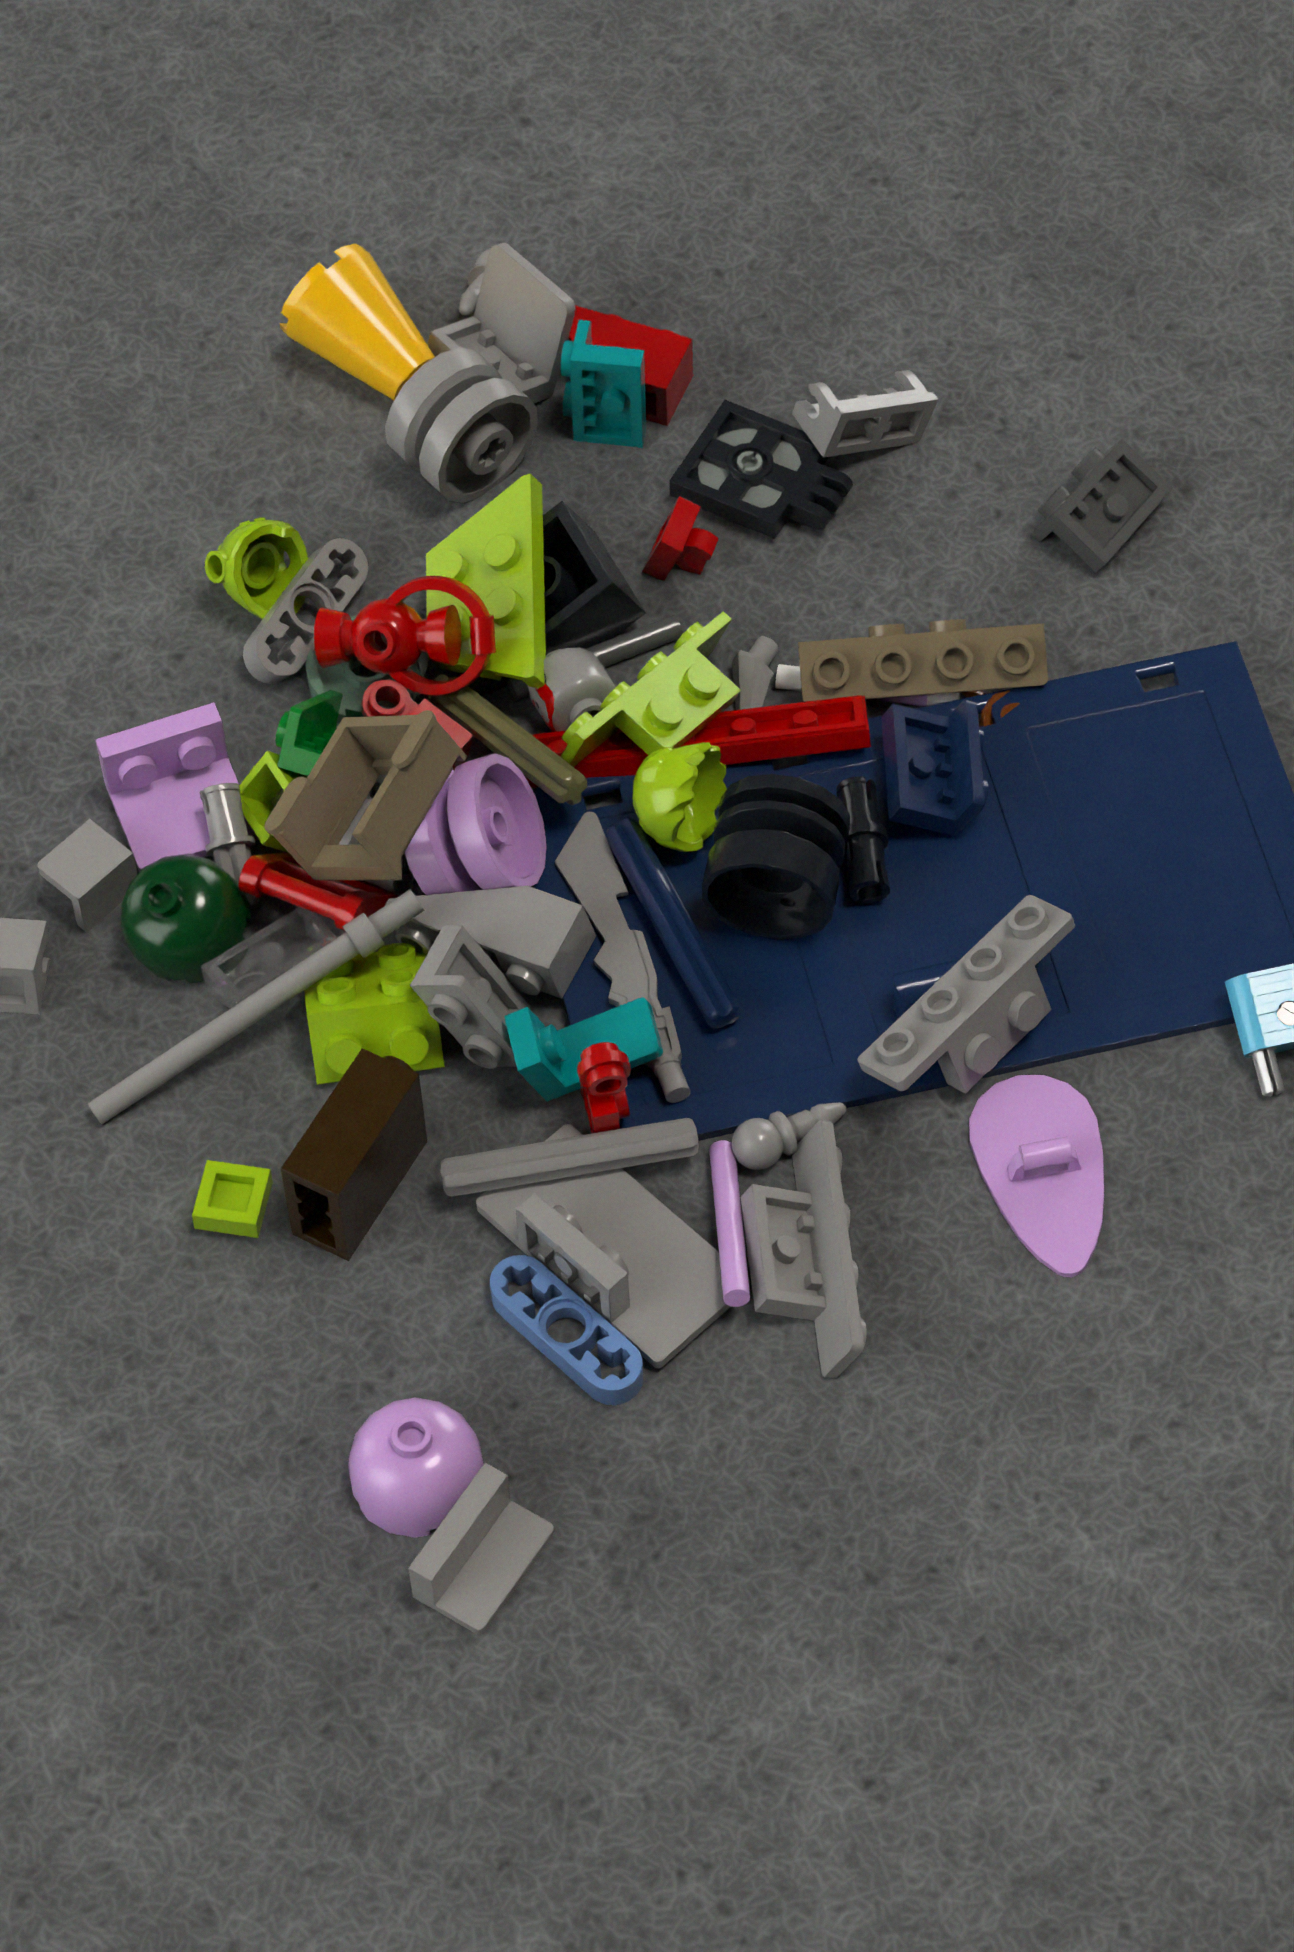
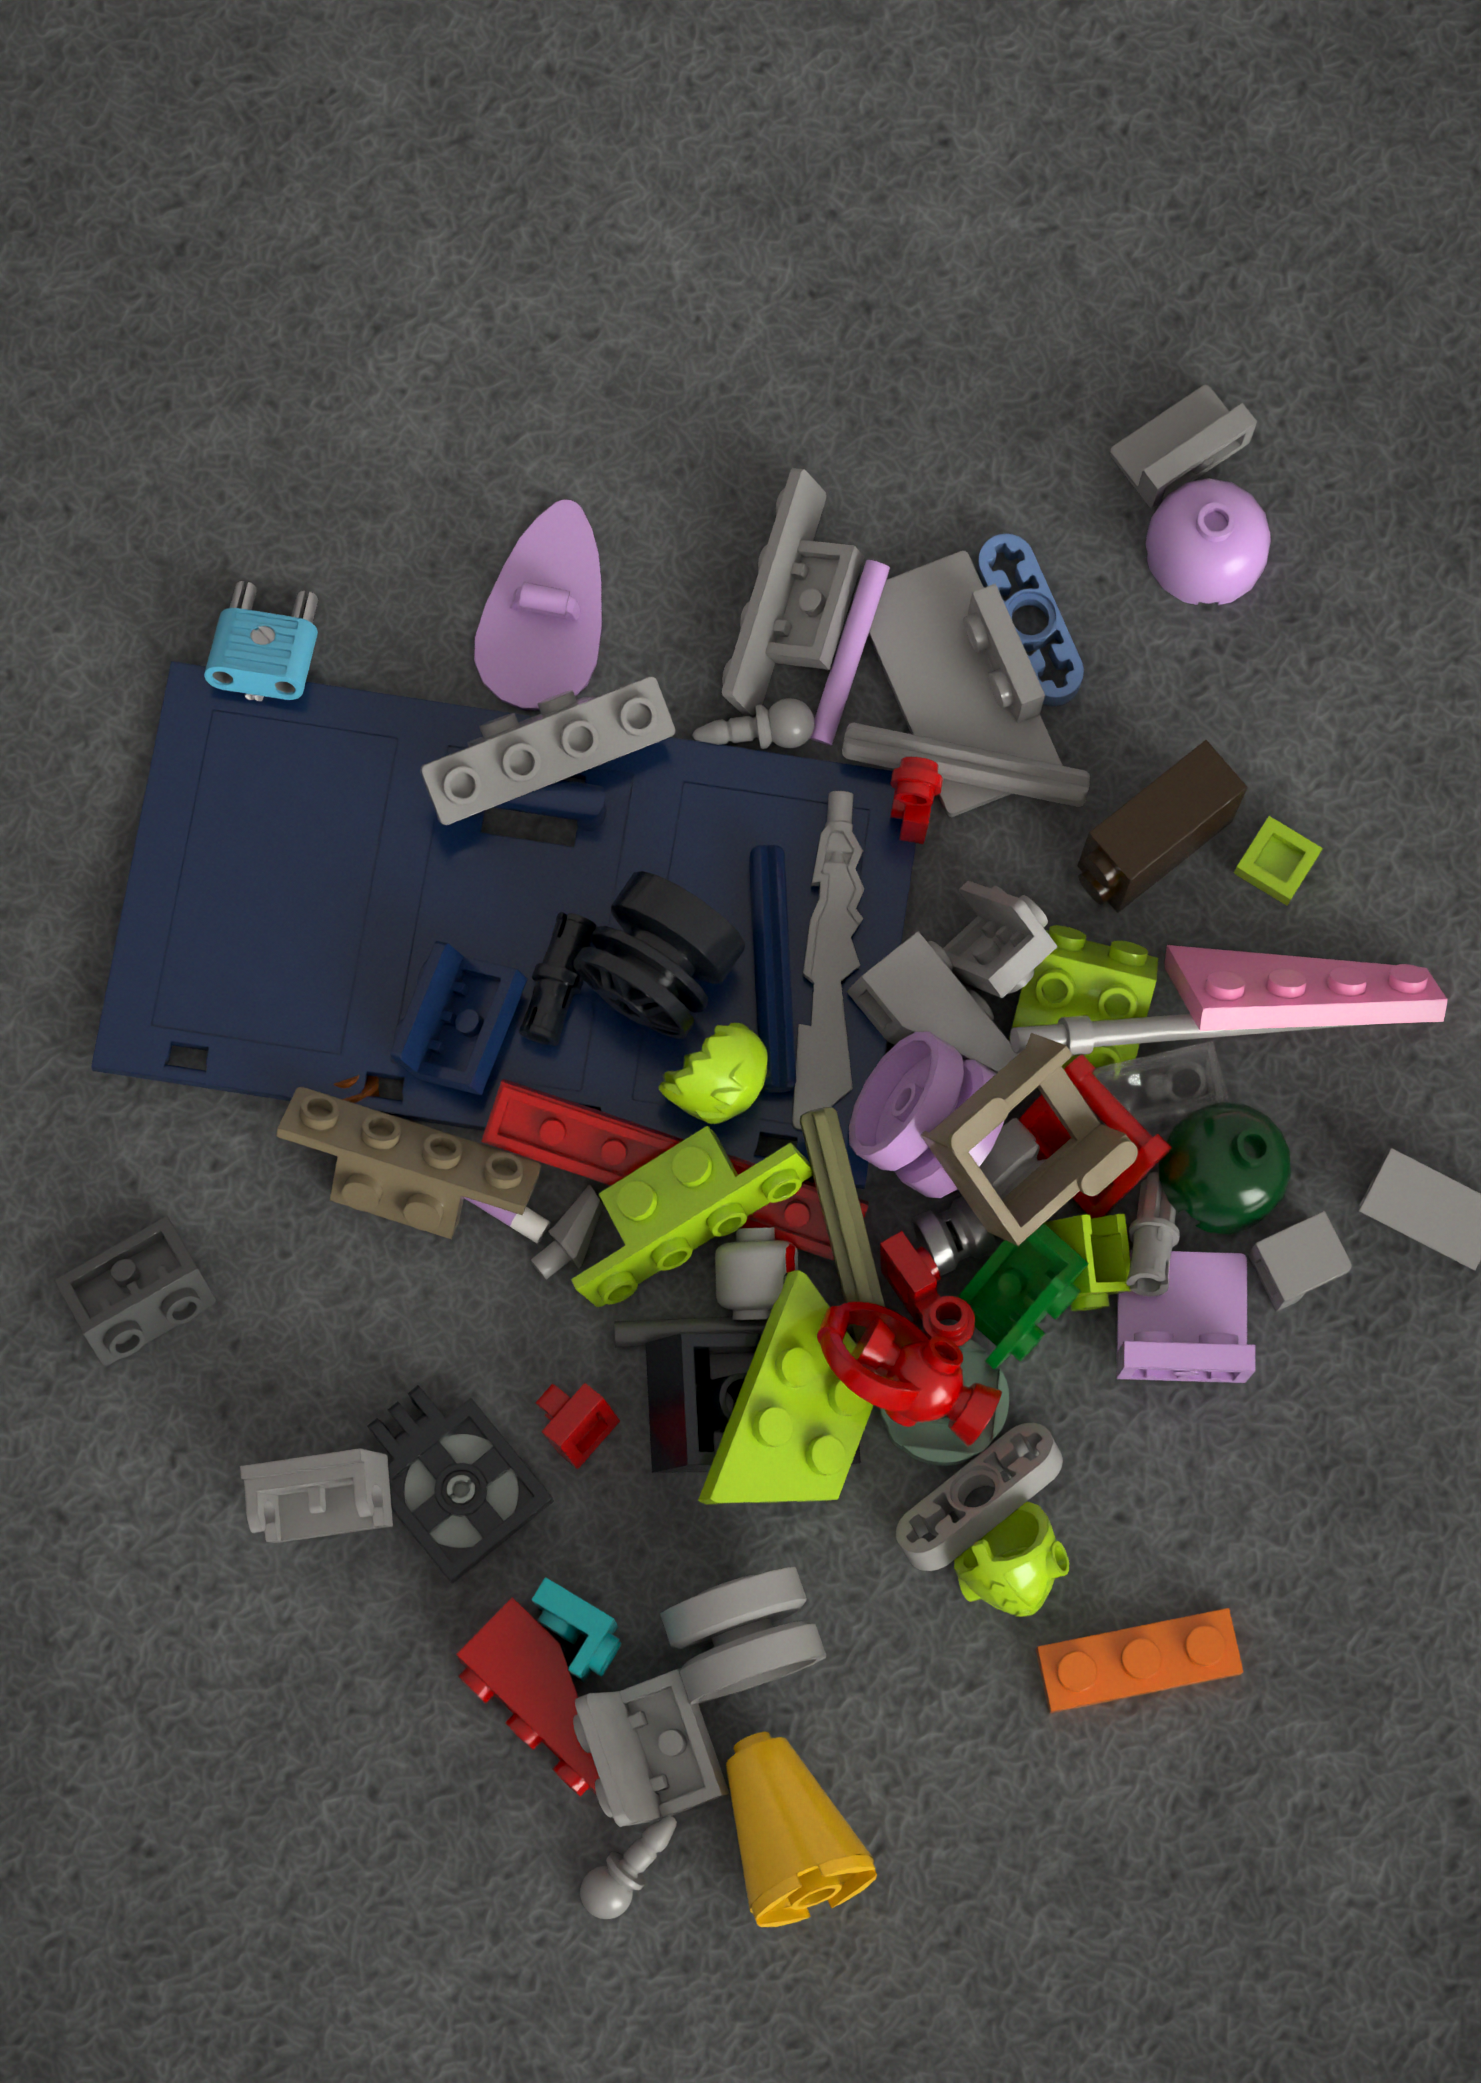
camera: 165 degrees left, 20 degrees up
(120, 558) = (1139, 1660): none -> orange plate
(181, 1077) = (1293, 991): none -> bright pink wing
(551, 1056) = (912, 864): teal bracket -> none

